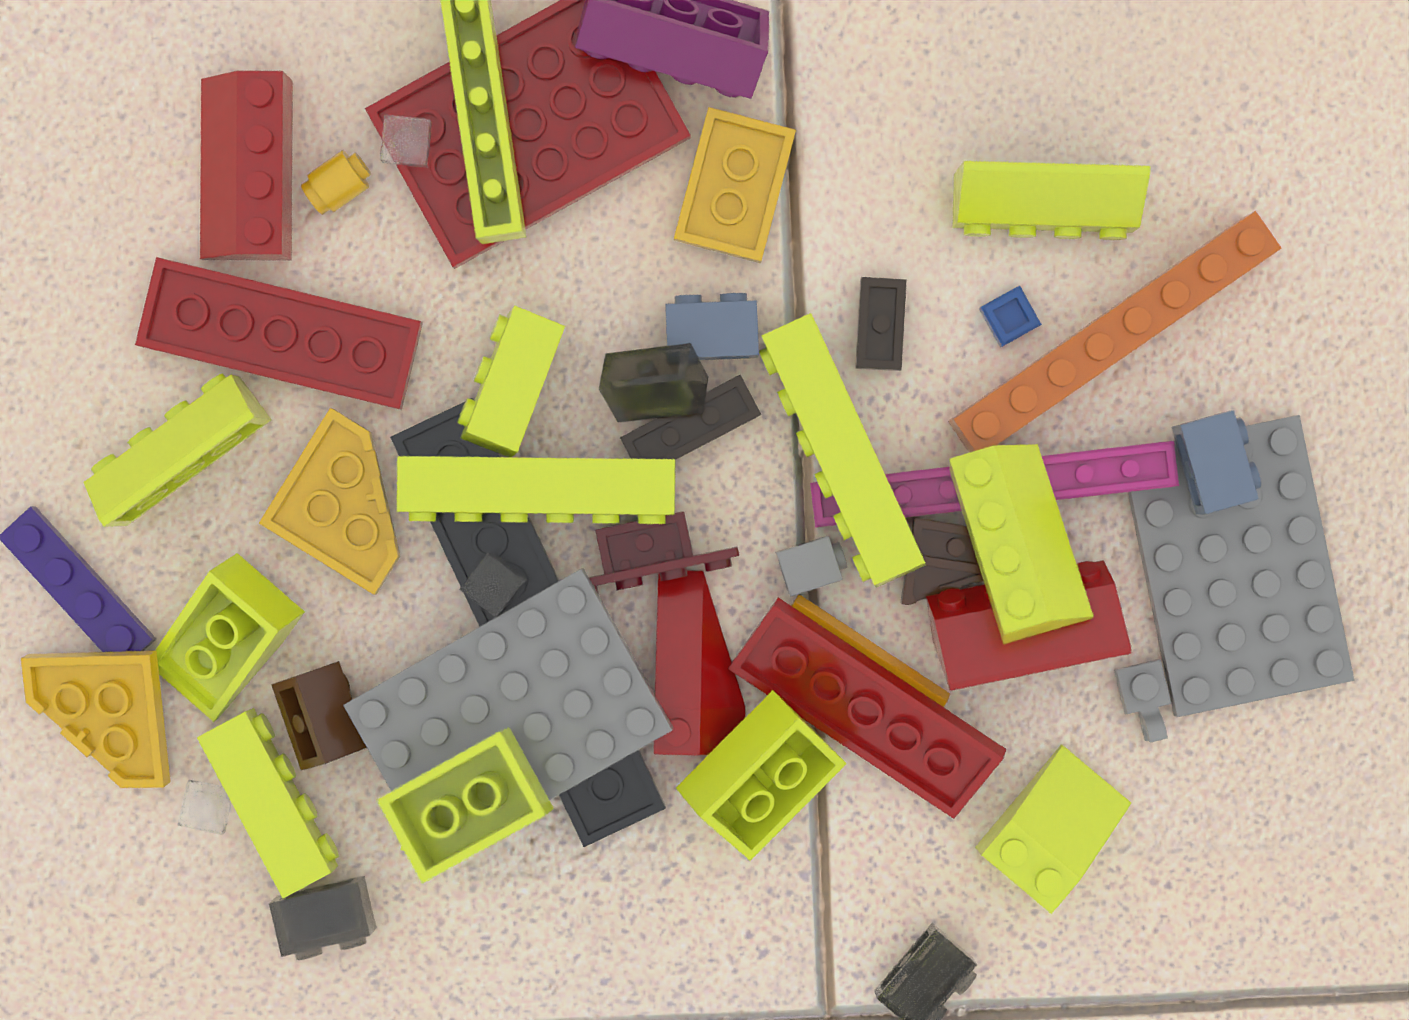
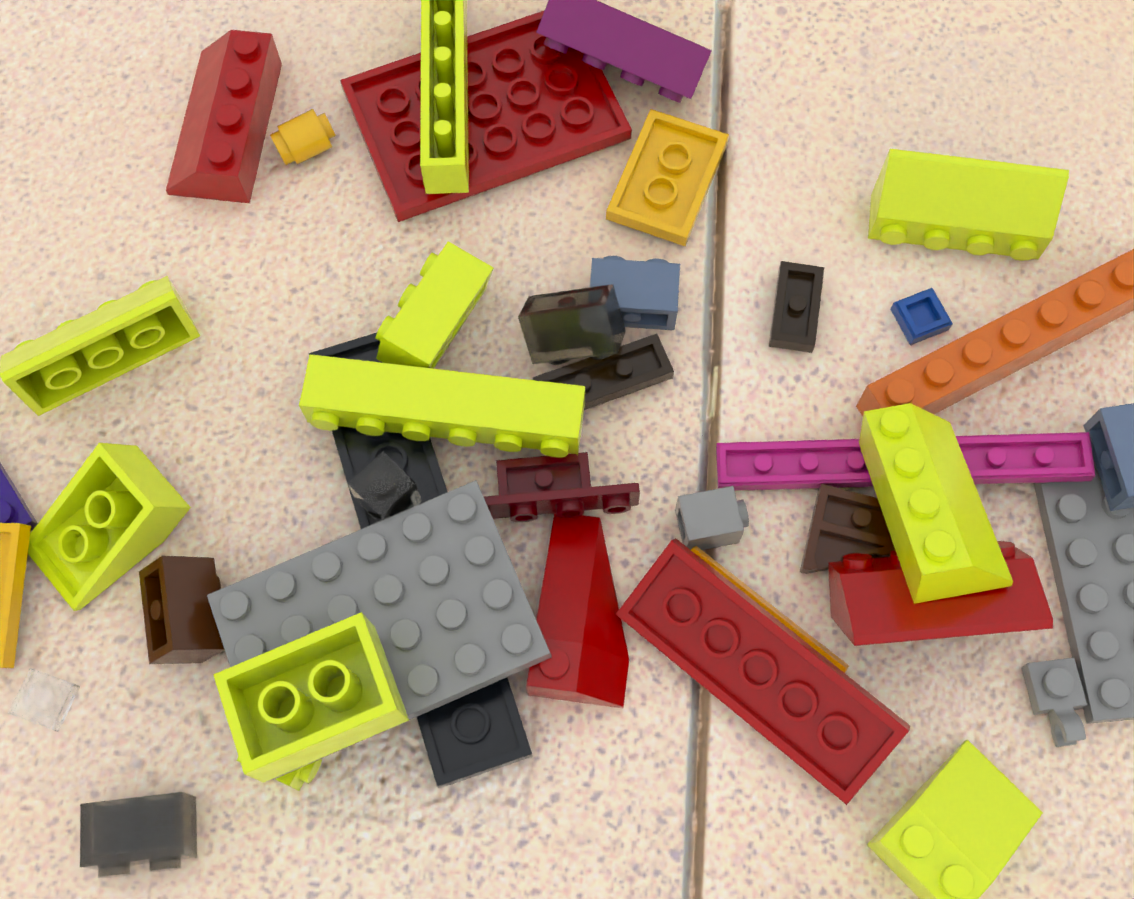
camera: 10 degrees right, 20 degrees down
(269, 802) = (110, 699): neon yellow brick -> none
(279, 333) = (224, 256): red plate -> none
(338, 504) = (246, 413): yellow plate -> none
(405, 141) = (371, 101): clear plate -> none
(760, 776) = (641, 723): neon yellow brick -> none
(843, 451) = (755, 413): neon yellow brick -> none

